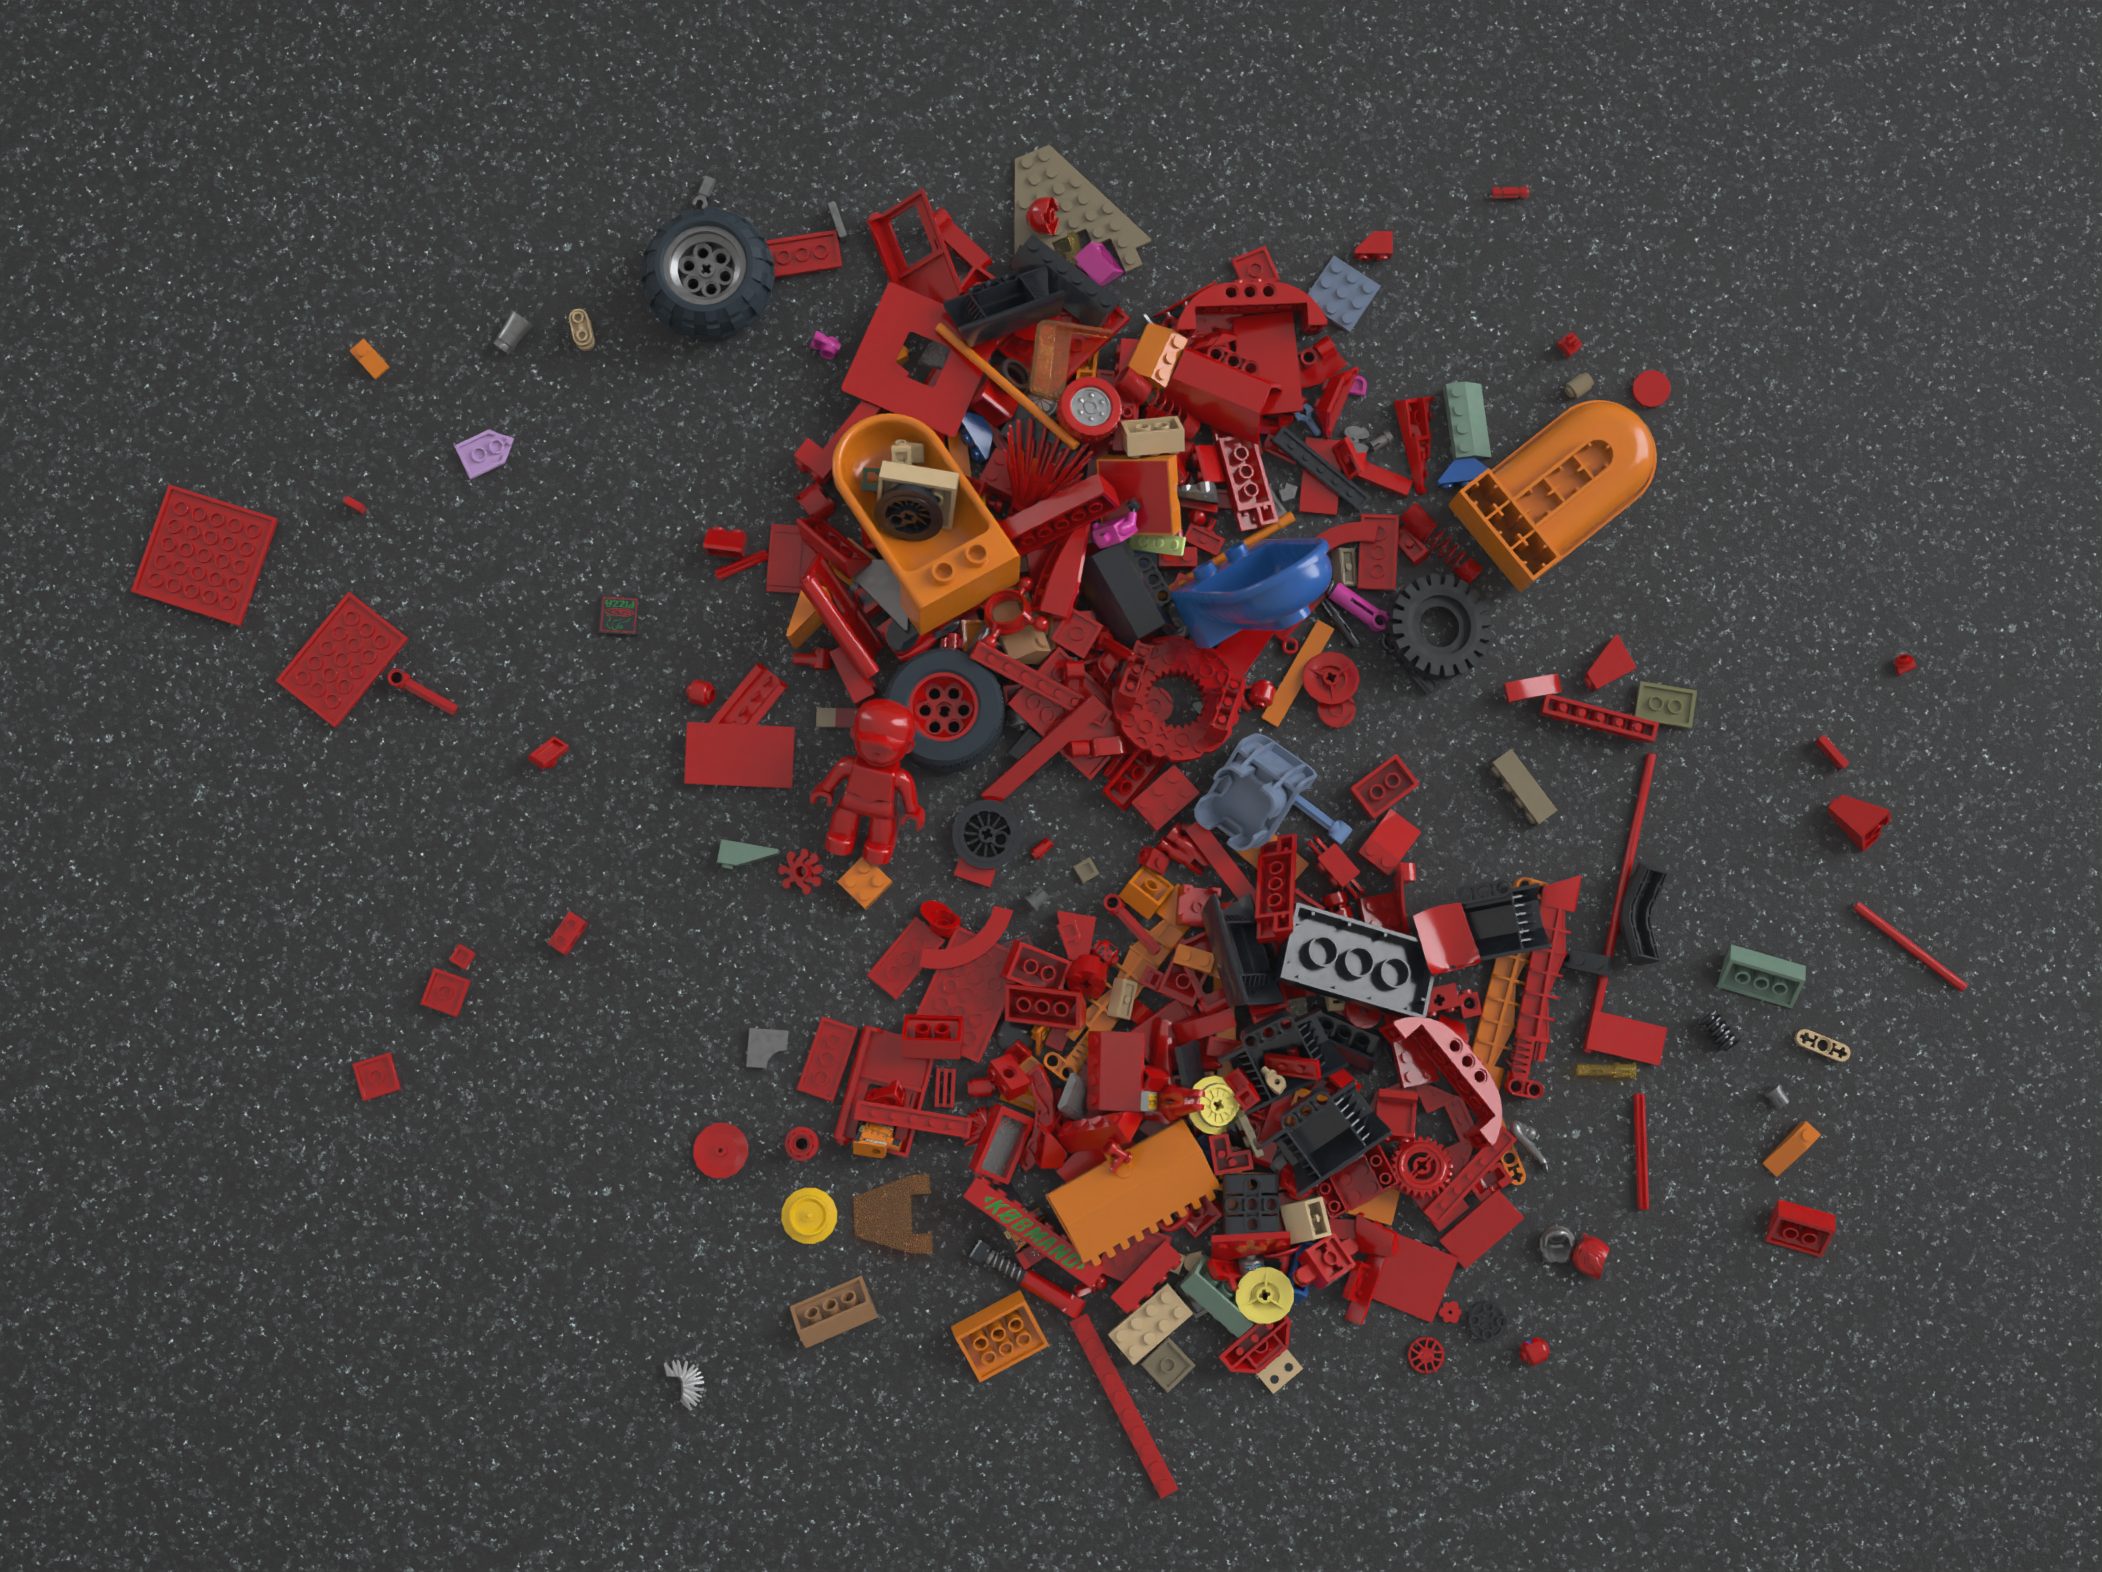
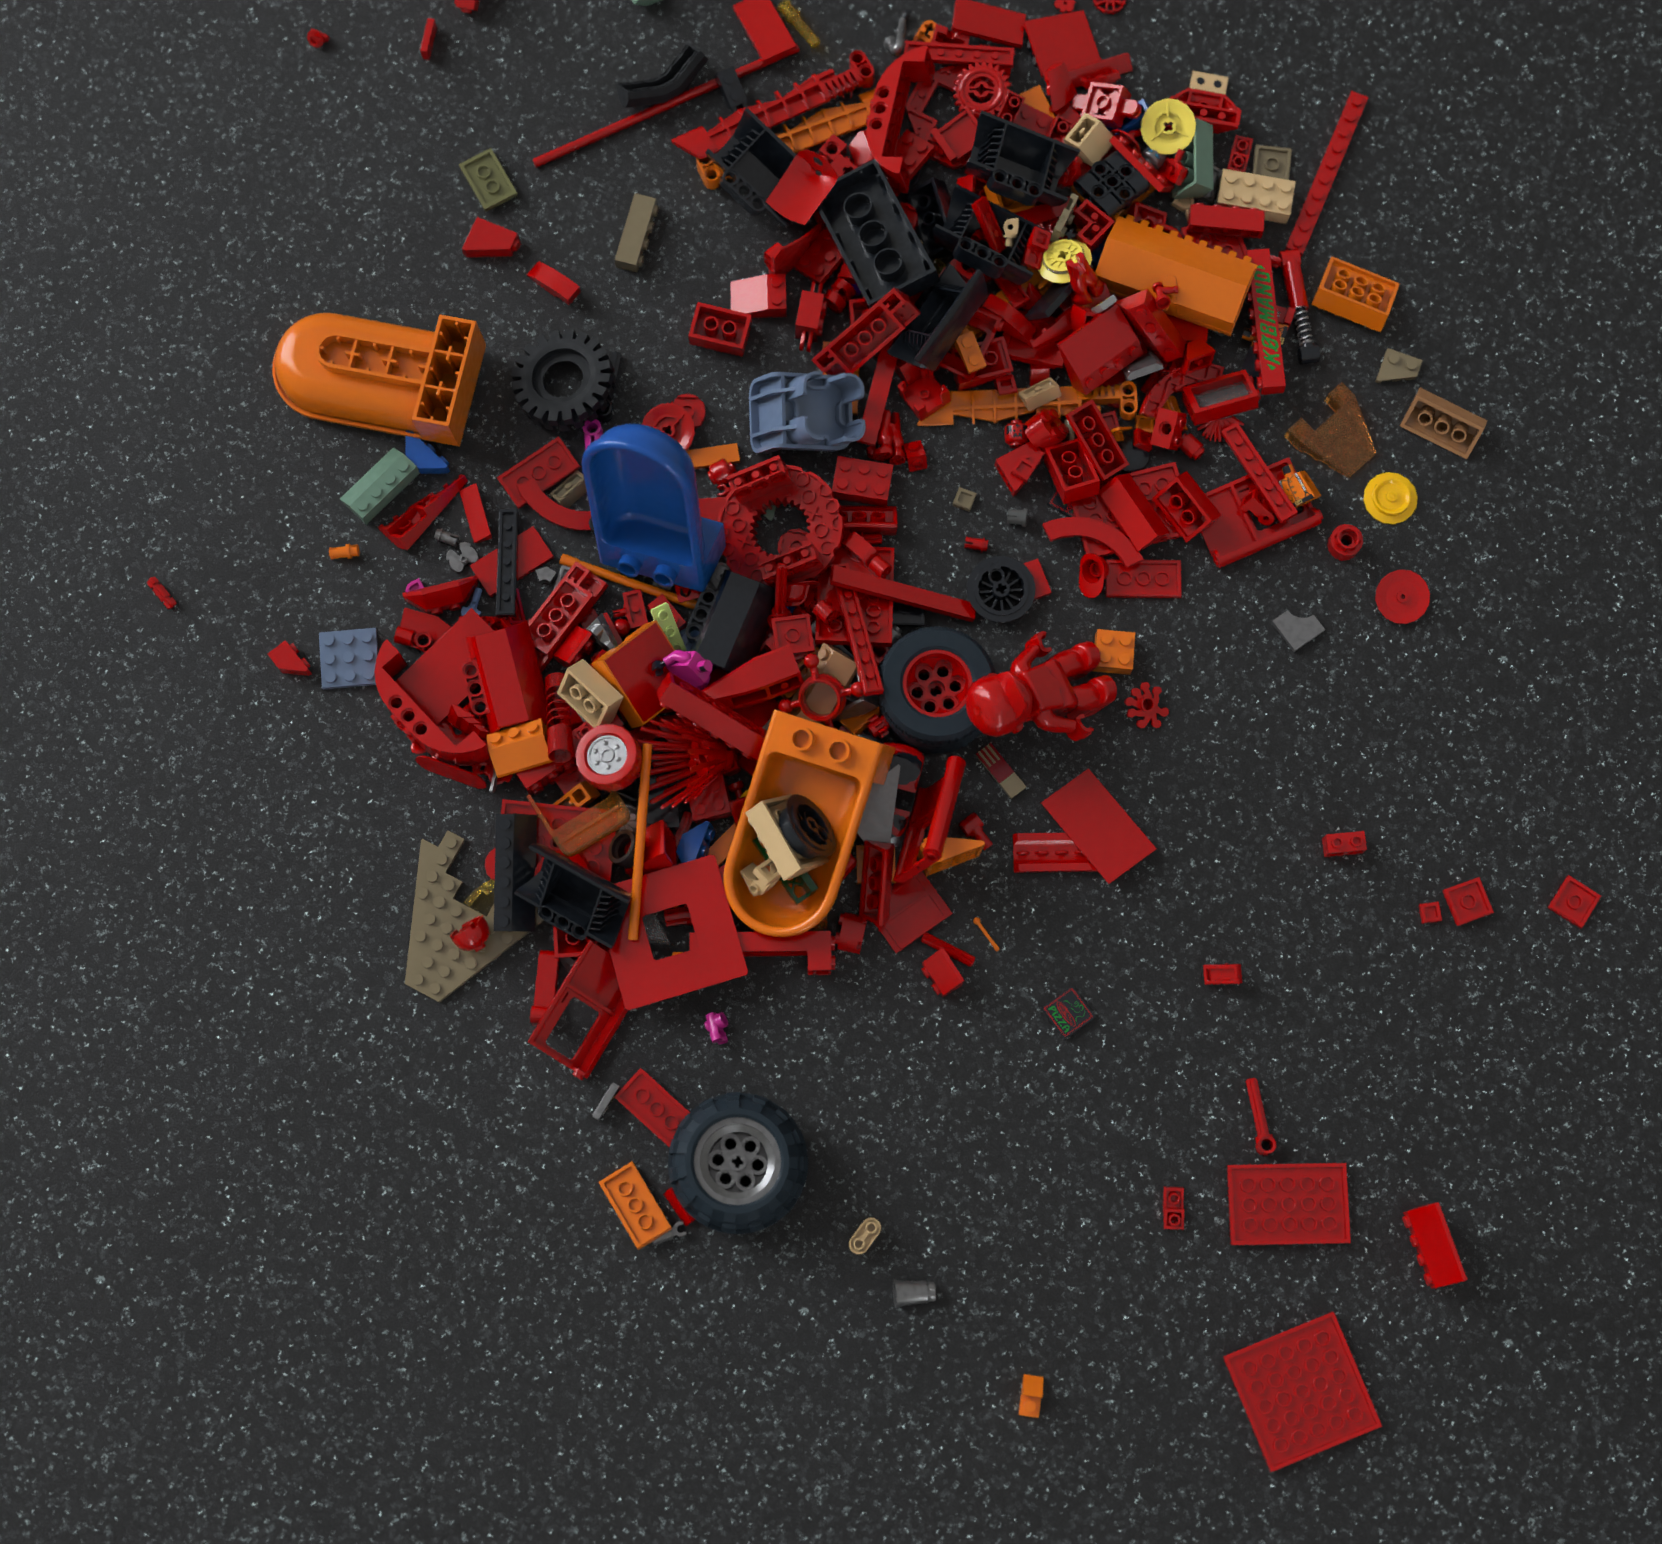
camera: 130 degrees left, 5 degrees down
(220, 736) = (1434, 1245): none -> red slope
(350, 502) = (1159, 1301): red tile -> none
(412, 573) = (1173, 1208): none -> red slope
(484, 452) = (1029, 1233): lavender tile -> none
(688, 1381) = (1583, 486): light grey hair -> none
(701, 692) = (1075, 896): red head -> none
(740, 854) = (1171, 762): sand green slope -> none
(743, 183) = (635, 1205): none -> orange tile
(745, 604) = (976, 920): none -> orange hinge
(827, 1059) = (1267, 576): red tile -> none
(859, 689) = (971, 779): red brick -> none
(911, 1317) = (1398, 366): none -> dark tan wing
(937, 1090) = (1225, 464): red tile -> none
(963, 991) = (1132, 511): none -> red slope
(1098, 263) = (476, 861): dark pink slope -> none
(1132, 924) = (977, 432): red axle -> none
(1146, 891) = (944, 440): orange slope -> none
(1198, 1345) = (1240, 153): none -> red slope
(1255, 265) = (381, 740): red tile -> none
(1337, 831) = (780, 341): medium blue axle -> none
(1349, 459) = (482, 545): red slope -> none
(1412, 546) = (513, 452): red slope -> none
(1421, 524) = (491, 453): red piece -> none
(1431, 356) = (344, 551): none -> orange pin
(1569, 344) = (254, 455): red piece -> none
(1579, 385) = (282, 423): dark tan brick -> none
(1598, 718) = (539, 216): red brick -> none
(1651, 389) = (242, 370): red tile -> none

